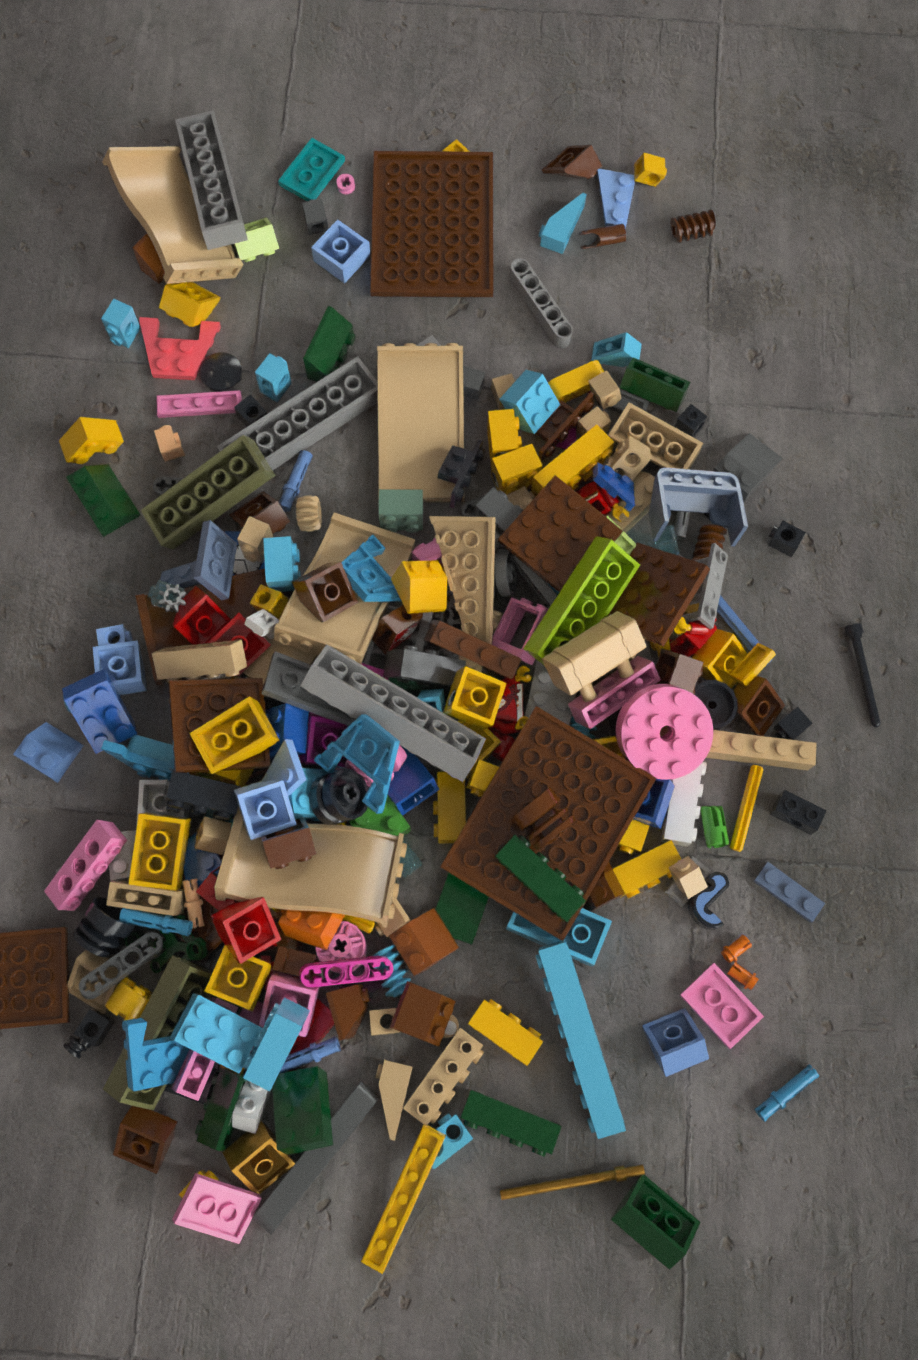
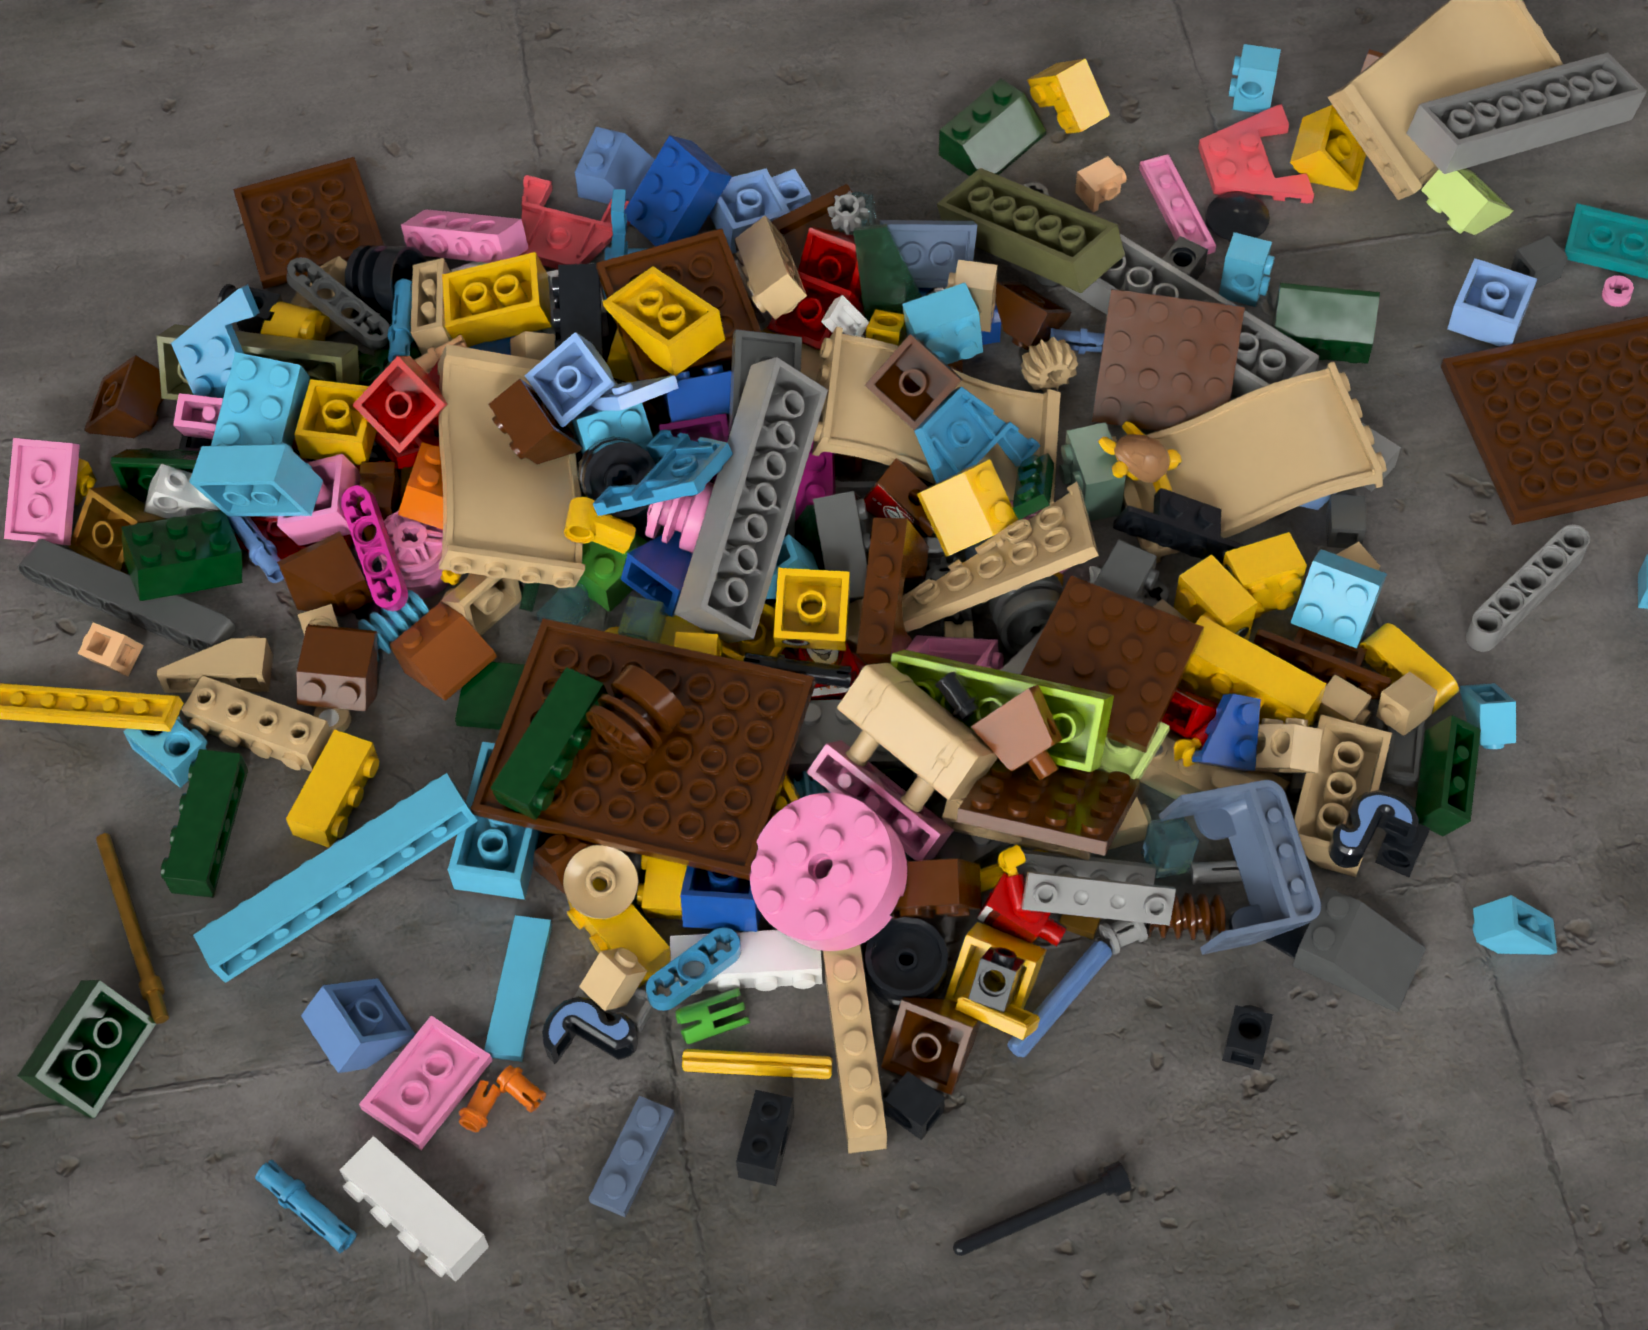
camera: 80 degrees right, 15 degrees down
(97, 798) = (559, 235): none -> coral wing
(231, 589) = (882, 271): none -> clear green wing
(336, 442) = (1165, 359): none -> reddish brown plate
(358, 1182) = (110, 649): none -> light nougat brick
(372, 824) = (586, 526): none -> yellow piece
(408, 477) = (1141, 457): none -> medium nougat animal
(414, 544) = (1033, 485): none -> dark green plate
(448, 808) = (643, 619): none -> clear light blue brick
(505, 727) = (823, 673): none -> black pin
(579, 623) = (957, 696): none -> black pin
(612, 594) = (1022, 733): none -> torso
(635, 867) = (604, 864): none -> tan dish
(668, 938) = (518, 988): none -> medium azure tile
(678, 815) = (665, 976): none -> dark azure beam
(689, 434) = (1366, 814): none -> black animal
(738, 657) = (988, 990): none -> brick
(751, 385) = (1514, 928): none -> medium azure slope
(802, 1026) = (414, 1209): none -> white brick

